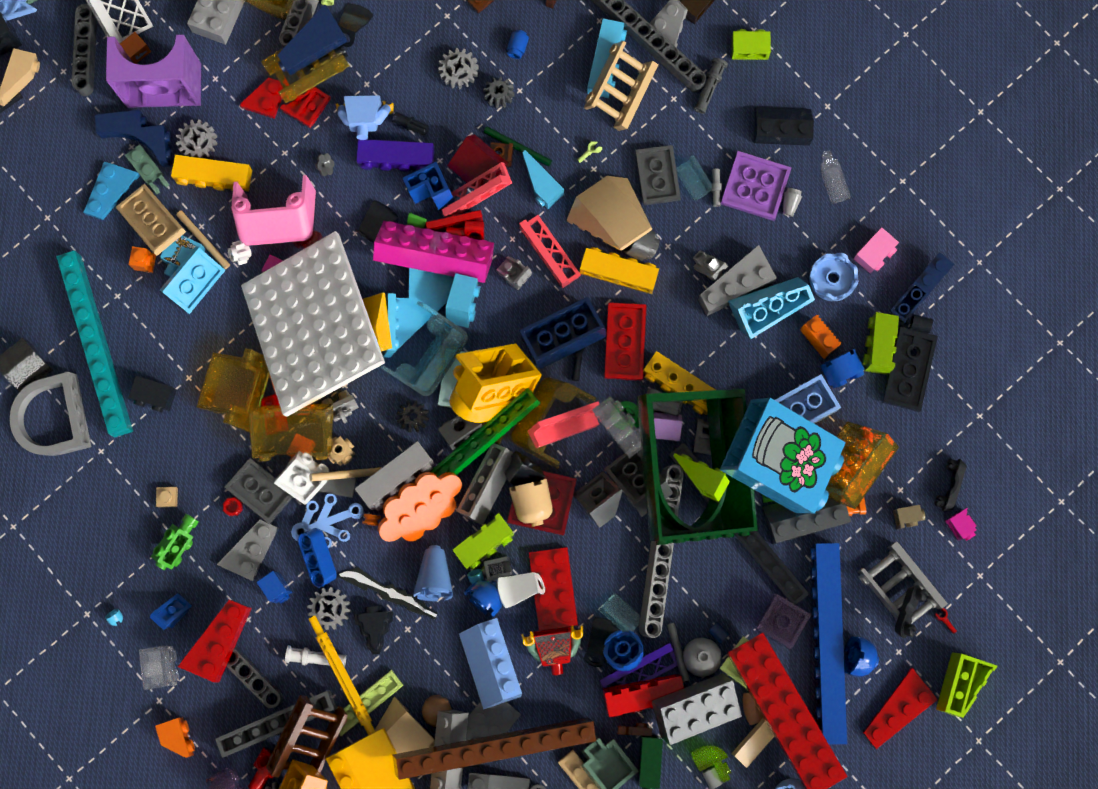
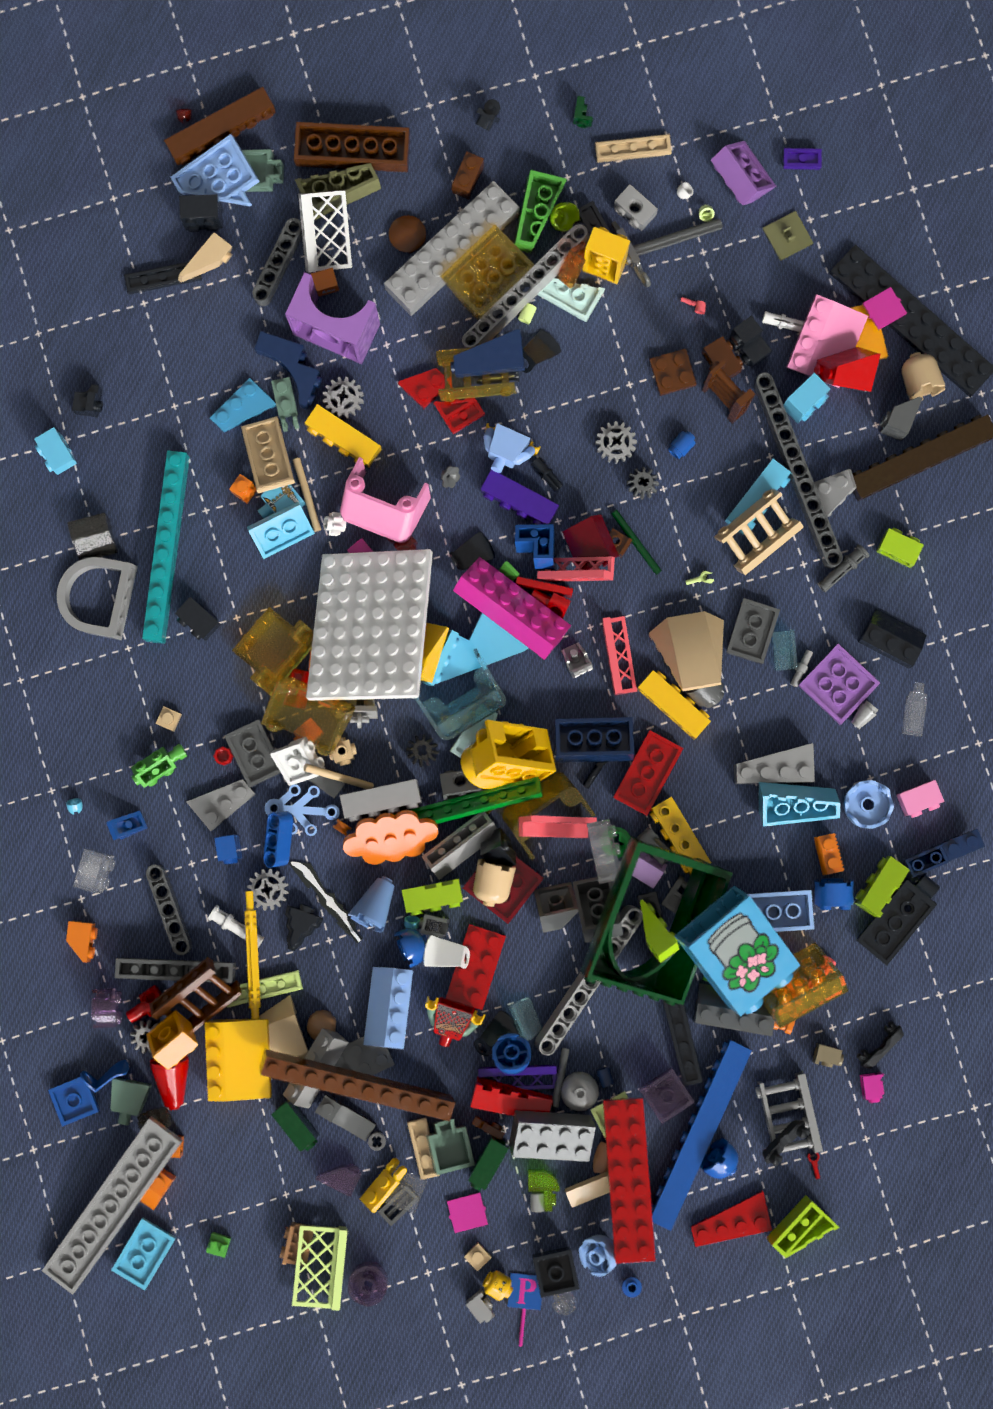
camera: 25 degrees right, 5 degrees up
(215, 646) = (152, 877): red wedge -> none
(460, 303) = (513, 669): medium azure brick -> none
(544, 186) = (642, 591): medium azure slope -> none
(709, 265) = (758, 739): light grey hips -> none

